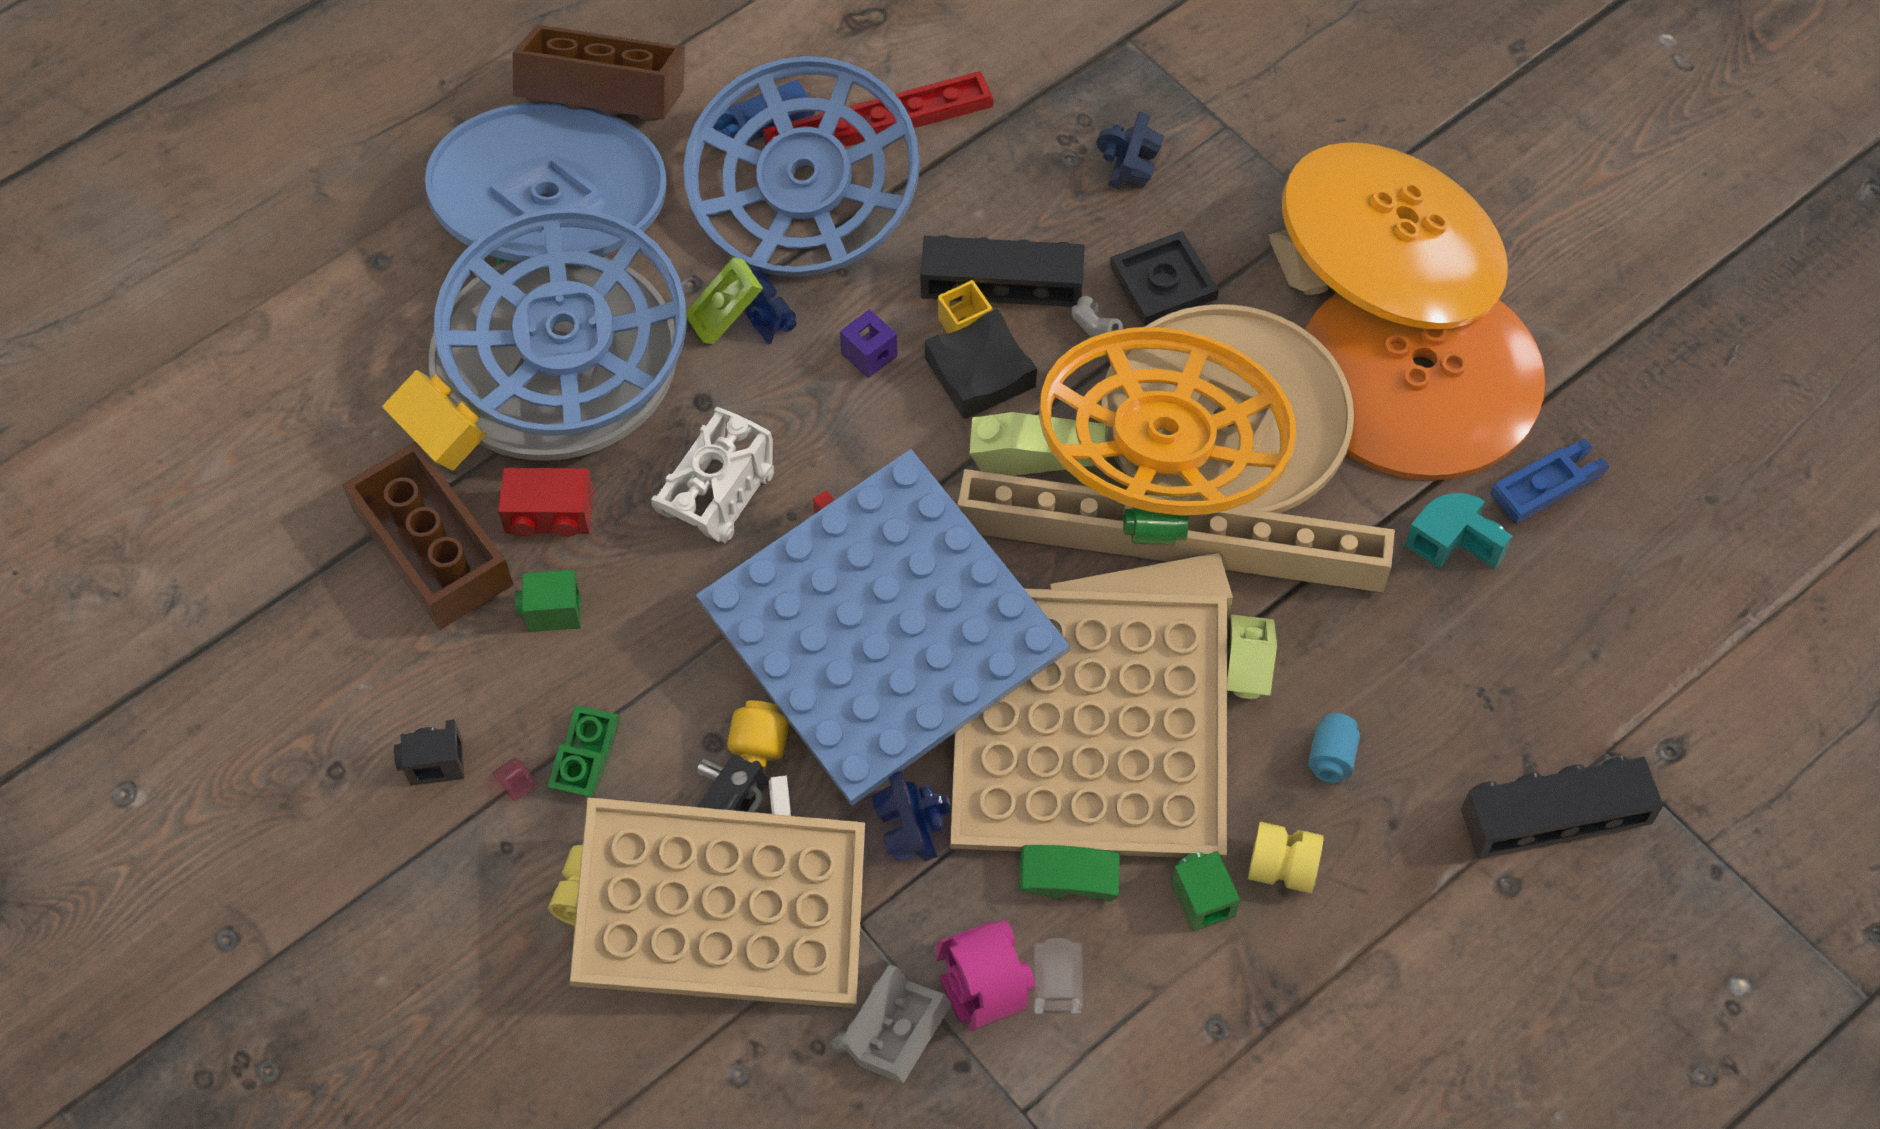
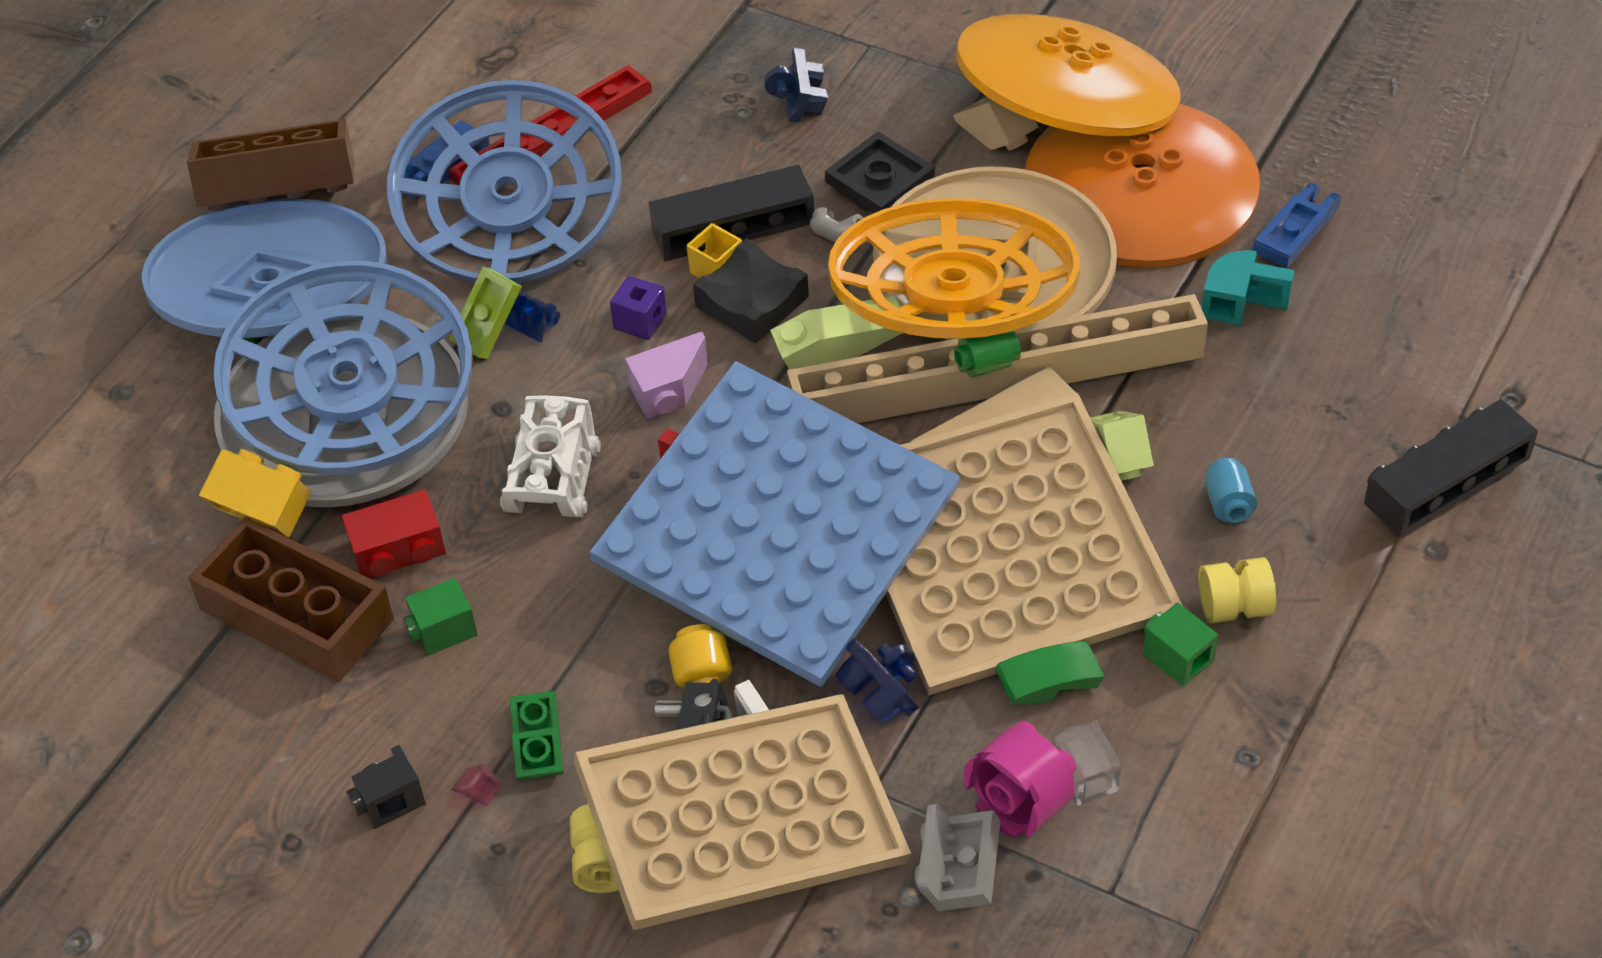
camera: 20 degrees left, 10 degrees down
(864, 425) = (667, 374): none -> lavender slope

